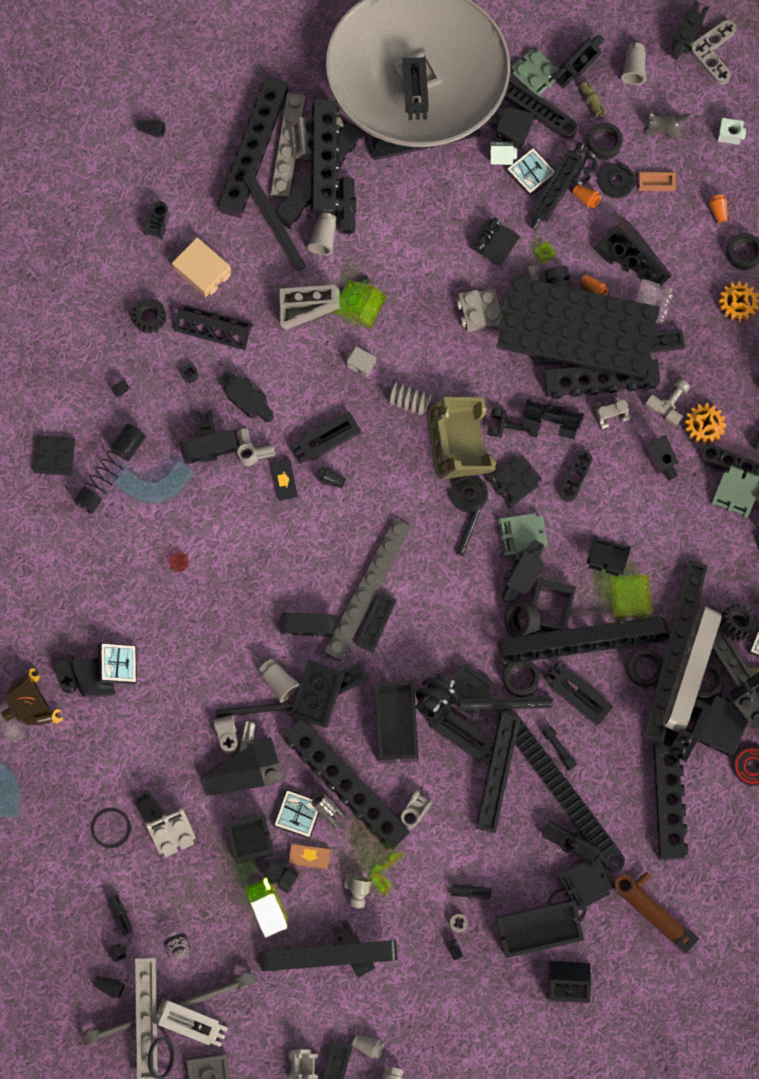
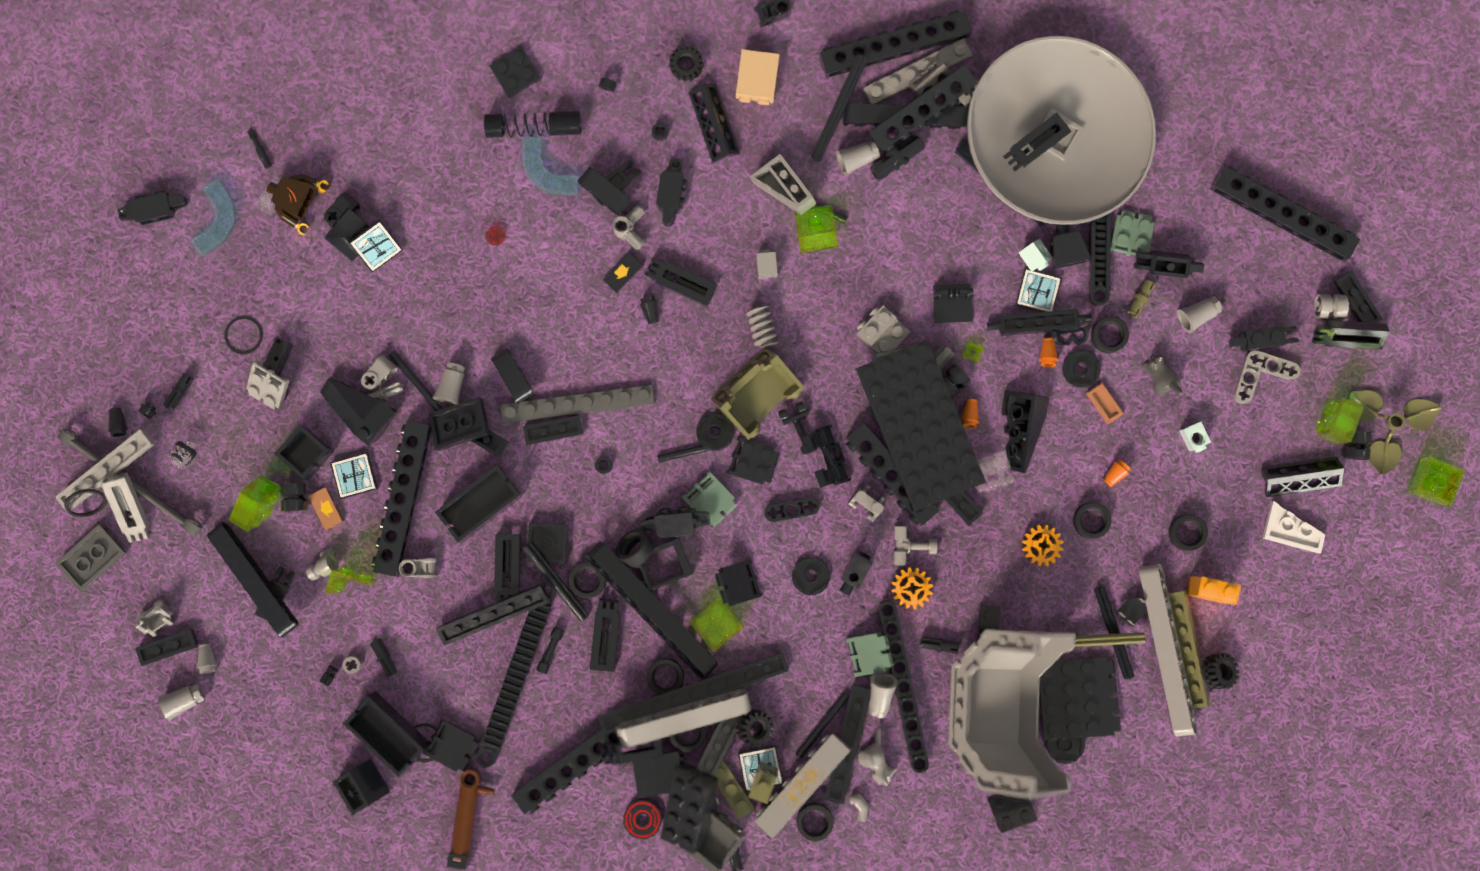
camera: 55 degrees right, 10 degrees up
(327, 808) = (371, 496): dark grey hinge -> none
(436, 696) = (519, 522): black piece -> none
(437, 596) = (609, 464): none -> black bush
(582, 848) = (475, 712): black piece -> none
(640, 508) = (821, 570): none -> black tile

